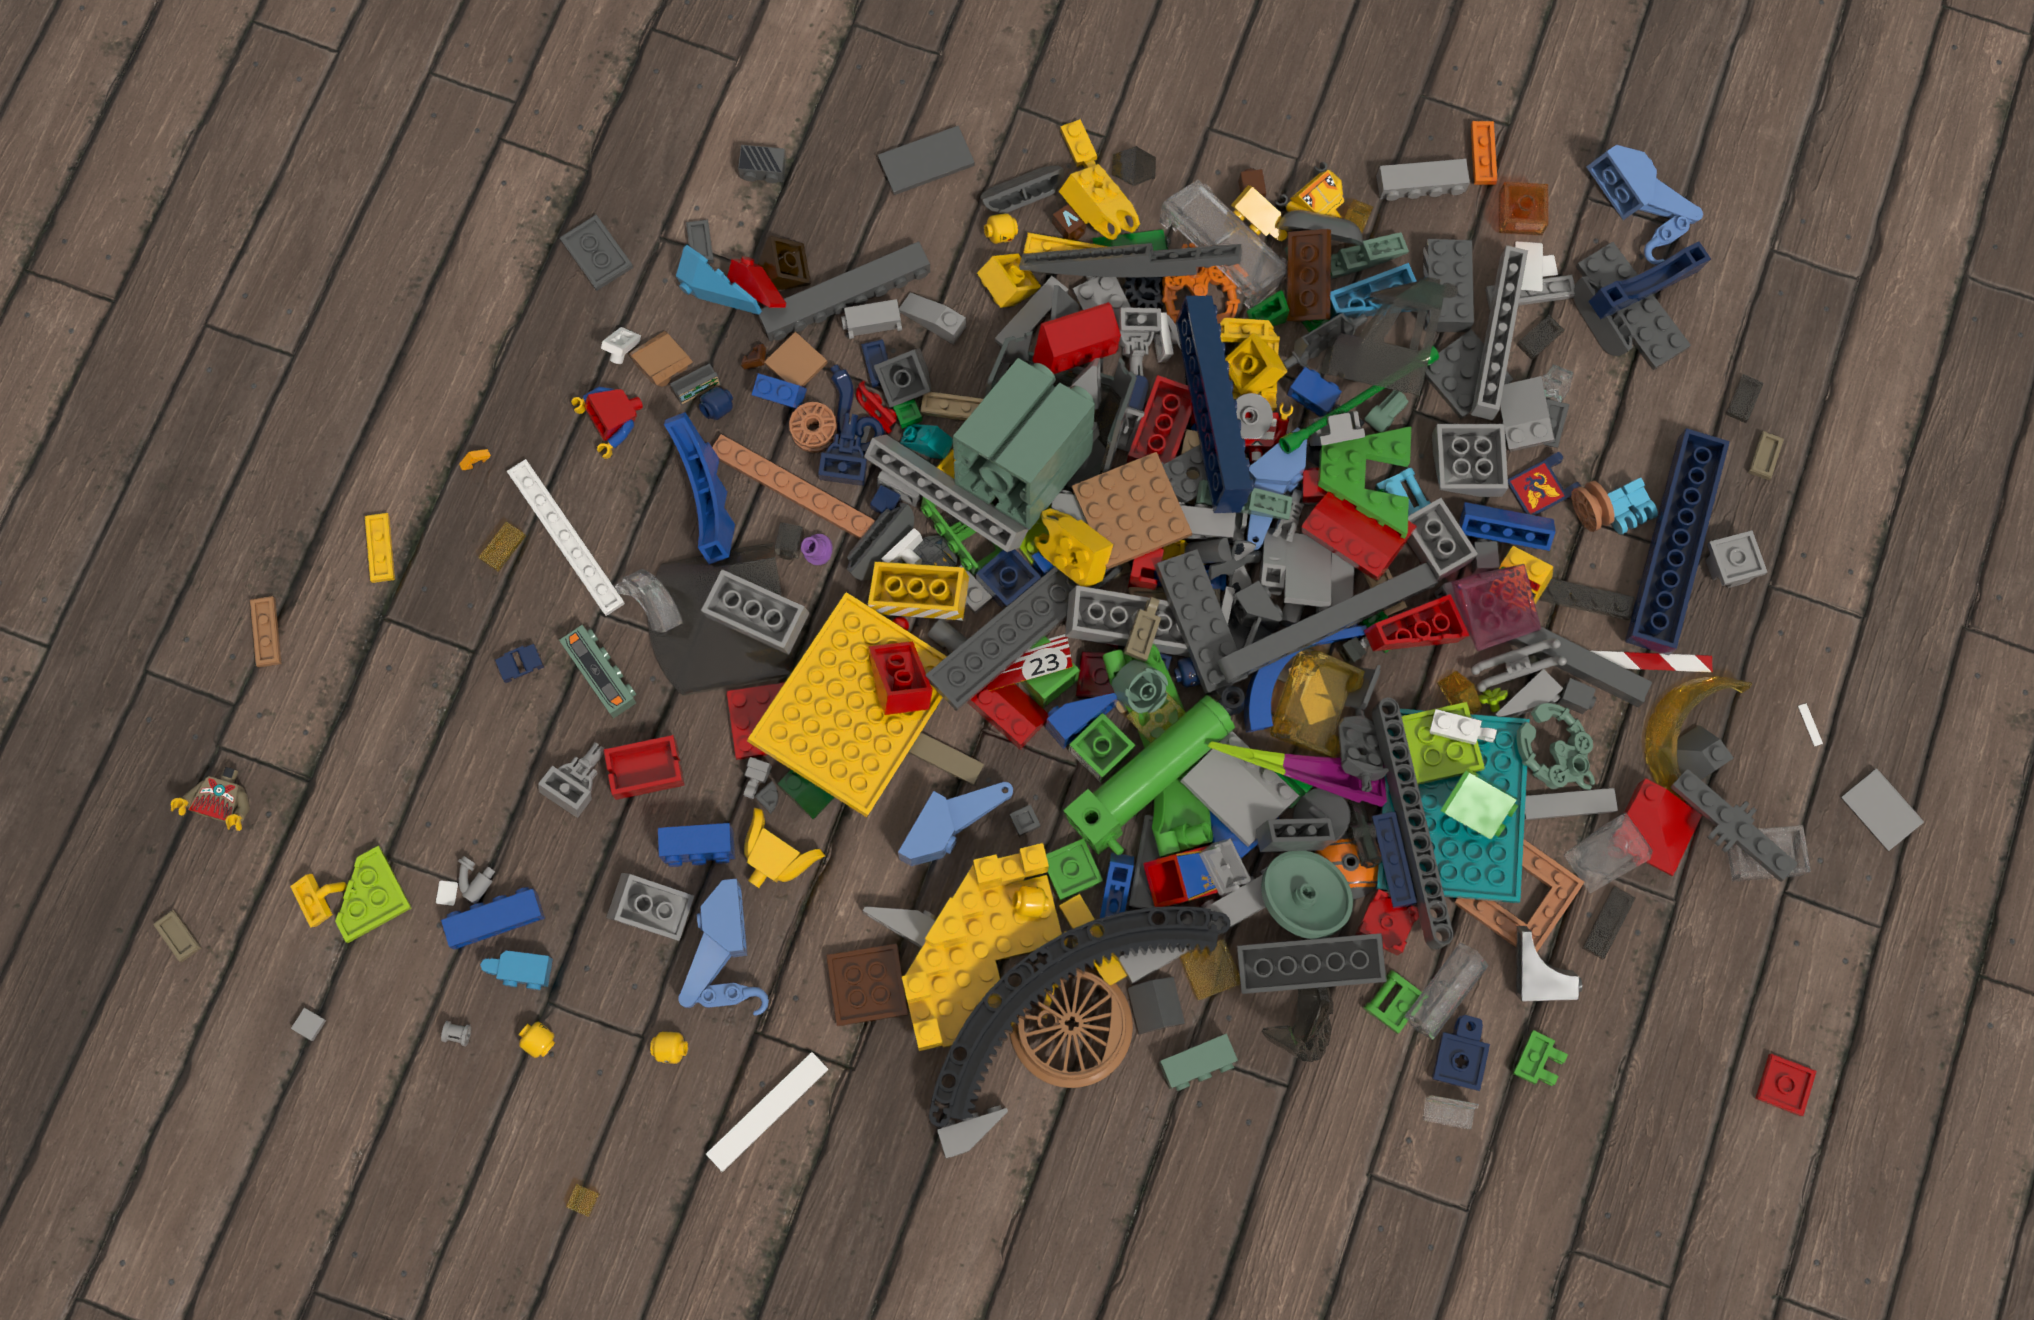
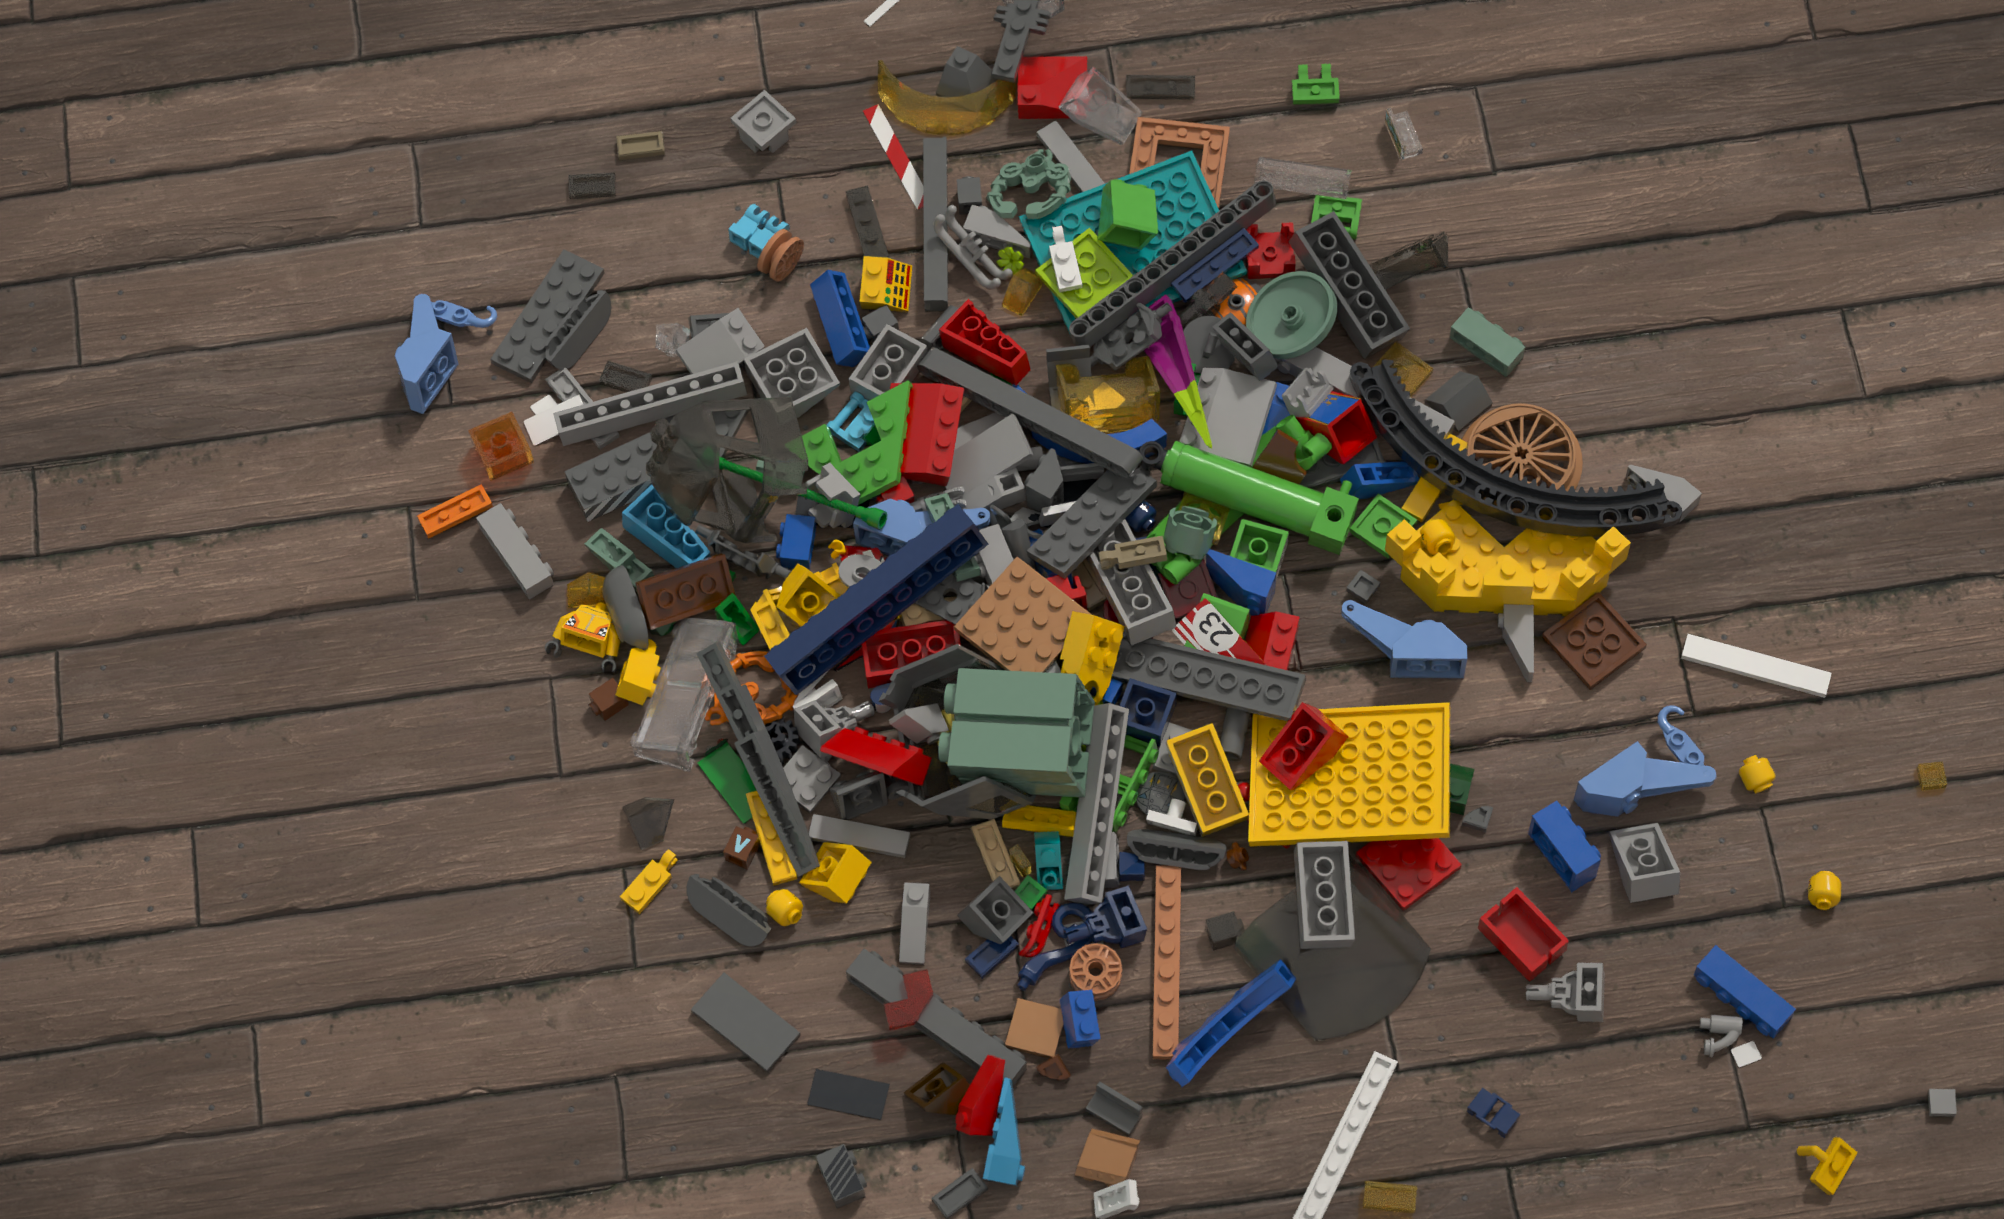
camera: 110 degrees left, 10 degrees down
(370, 896) = (1794, 1115): lime plate -> none
(456, 1033) = (1864, 964): light grey bush -> none
(520, 968) = (1772, 941): dark azure hinge -> none
(597, 671) = (1457, 1033): brick -> none
(611, 414) = (1195, 1168): red torso -> none
(653, 598) = (1358, 1013): clear arch -> none
(716, 403) = (1124, 1076): dark blue head -> none
(756, 772) = (1463, 838): light grey piece -> none
(773, 856) = (1531, 781): yellow torso -> none
(817, 549) = (1214, 901): medium lavender piece -> none
(826, 205) = (848, 1094): none -> black sticker
(844, 584) = (1237, 857): none -> reddish brown plate
(866, 281) = (907, 1011): none -> clear red tile
(872, 318) = (950, 978): light grey brick -> none
(939, 419) = (1020, 860): none -> clear yellow tile
(946, 758) = (1346, 677): dark tan tile -> none
(1099, 201) = (708, 824): yellow brick -> none
(1169, 804) = (1280, 458): none -> reddish brown tile
(1353, 649) = (1036, 388): pearl dark grey piece -> none
(1462, 1043) = (1337, 145): dark blue plate -> none
(1497, 605) = (928, 287): clear pink slope -> none
(1538, 979) = (1246, 112): arch -> none
(1539, 487) = (781, 313): flag -> none
(1629, 291) = (555, 316): dark blue arch -> none
(1677, 542) = (773, 175): dark blue brick -> none

